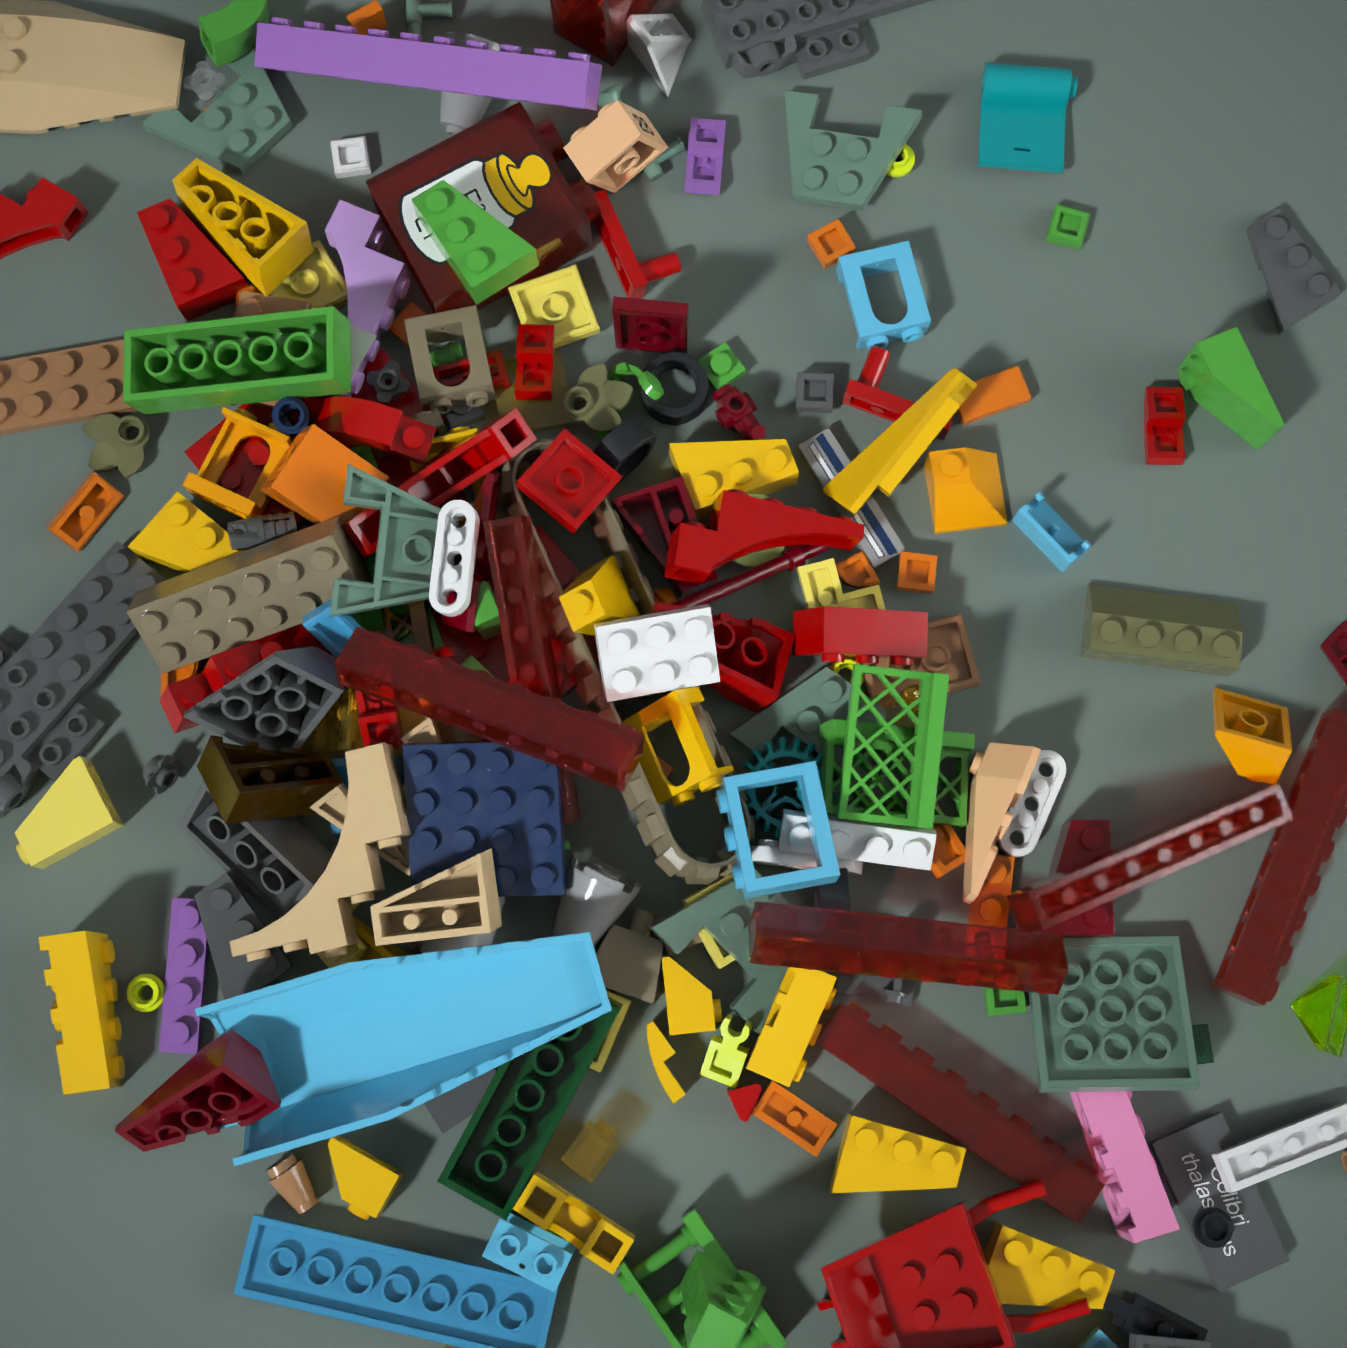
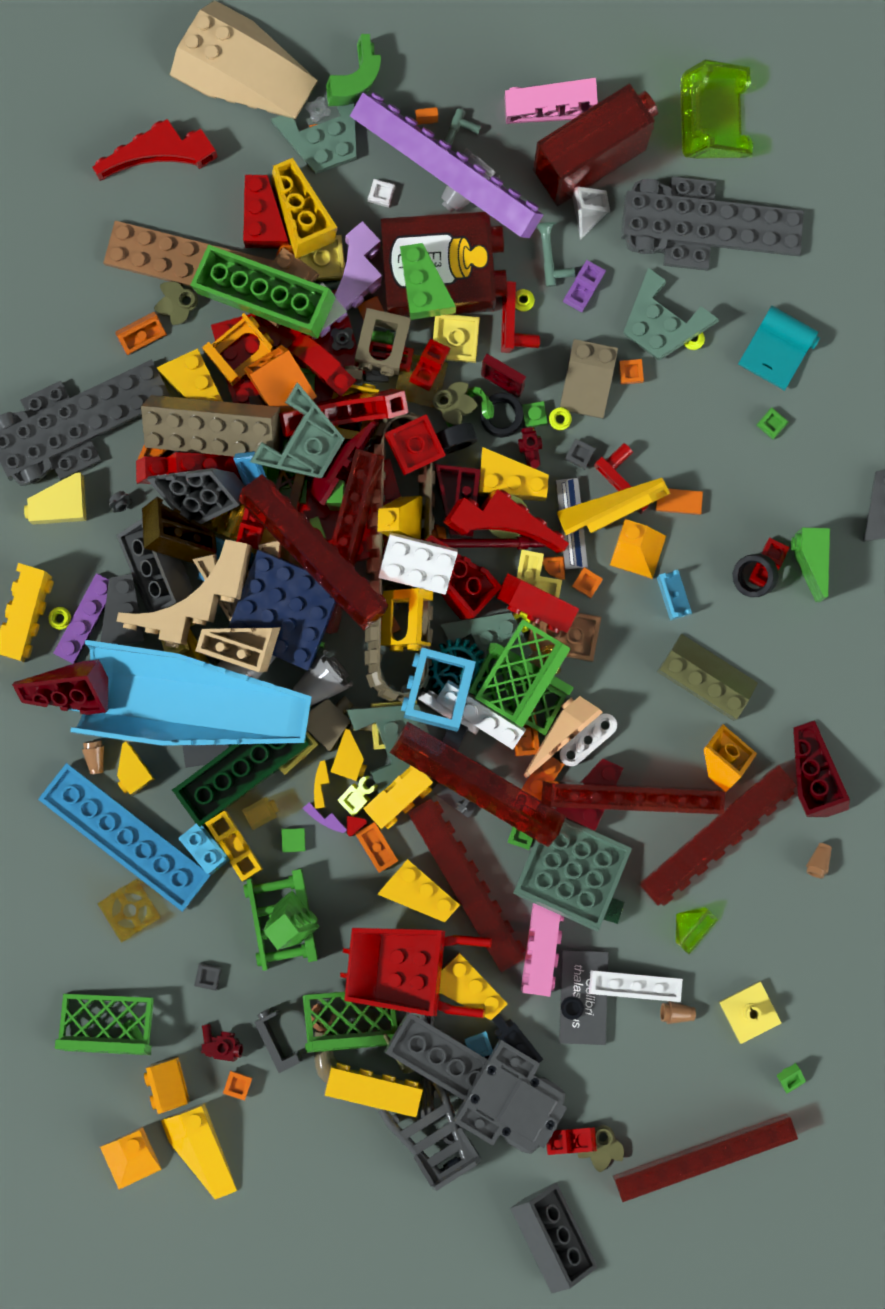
camera: 20 degrees right, 5 degrees up
(260, 529) = (234, 393): dark grey hinge -> none
(282, 411) = (274, 338): dark blue cone -> none
(449, 543) = (333, 450): white plate -> none
(614, 146) = (532, 260): light nougat brick -> none
(636, 220) = (523, 307): none -> neon yellow plate
(660, 1168) = (293, 840): none -> bright green tile
(705, 1113) = (330, 821): none -> medium lavender slope
(765, 346) = (563, 412): none -> neon yellow plate
(774, 279) = (588, 378): none -> dark tan slope
(880, 260) = (627, 432): medium azure panel -> none
(1148, 475) = (740, 583): none -> black tyre

